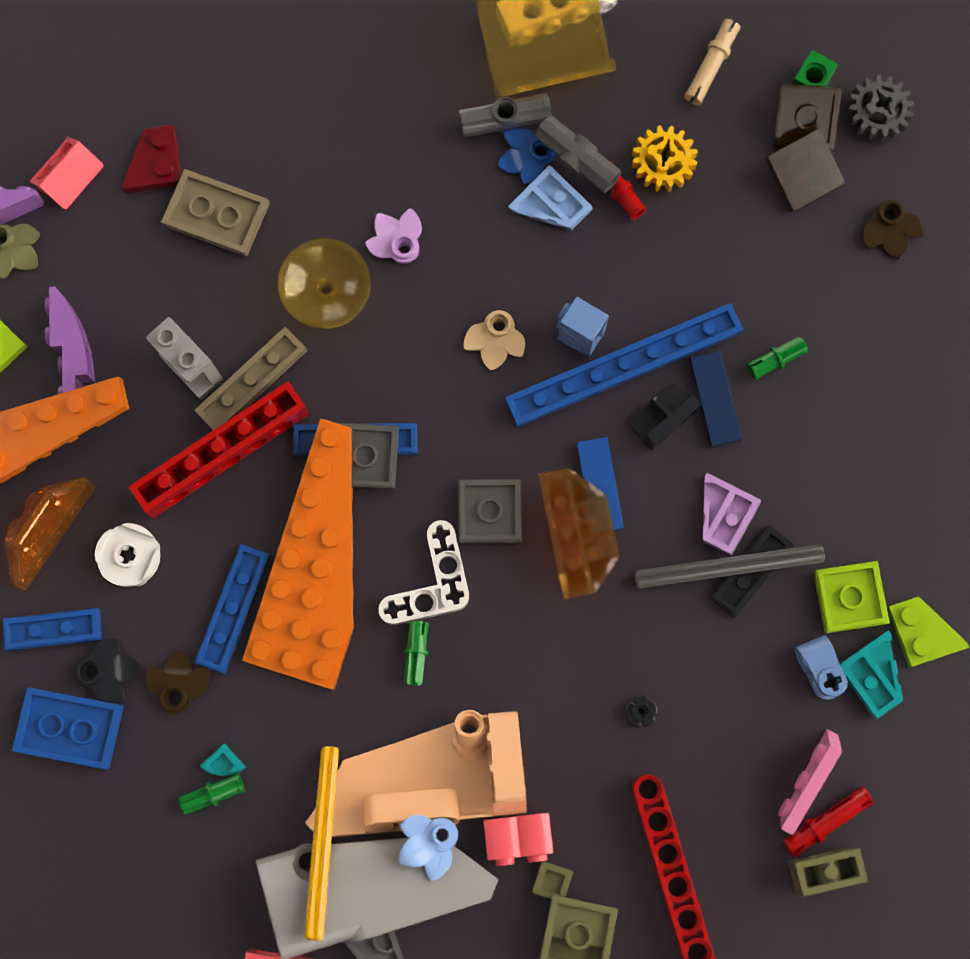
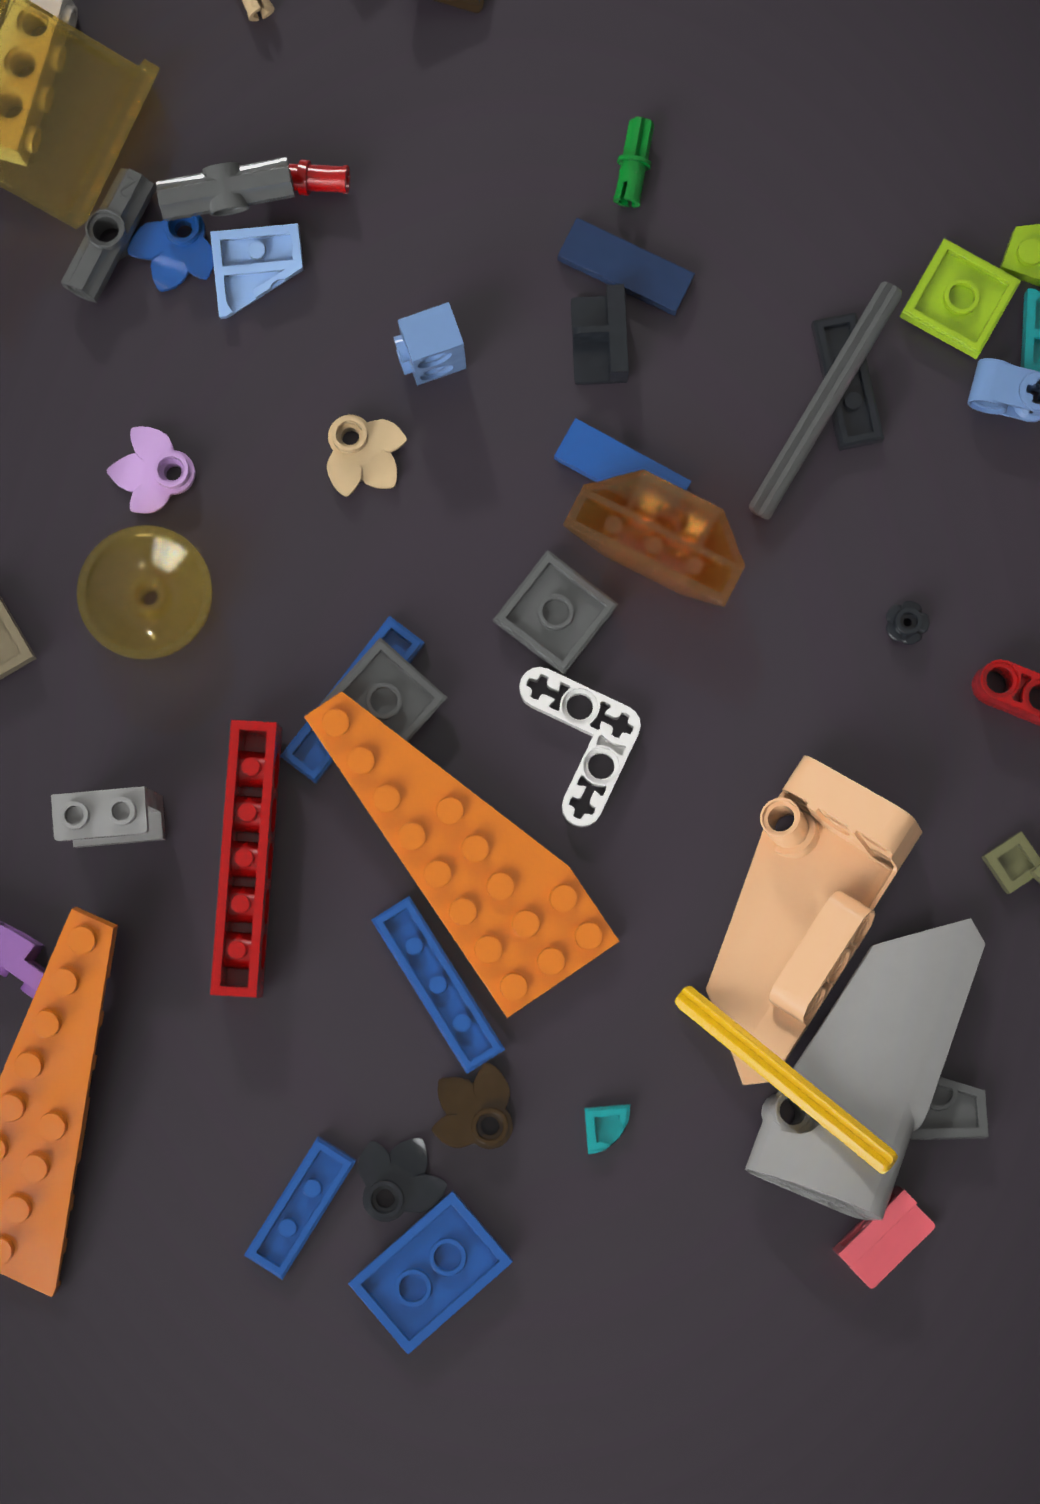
camera: 50 degrees left, 5 degrees up
(42, 526) = (172, 1131): clear orange wedge -> none
(122, 538) = (258, 1049): white plate -> none
(211, 794) = (630, 1164): green axle -> none
(251, 379) = (190, 763): dark tan plate -> none
(415, 652) = (650, 817): green axle -> none
(424, 848) = (877, 970): light blue plate -> none
(518, 837) = (941, 861): coral brick -> none
(623, 365) = (508, 335): blue plate -> none
(677, 161) = (311, 81): yellow gear -> none
(726, 514) = (763, 358): lavender wing -> none

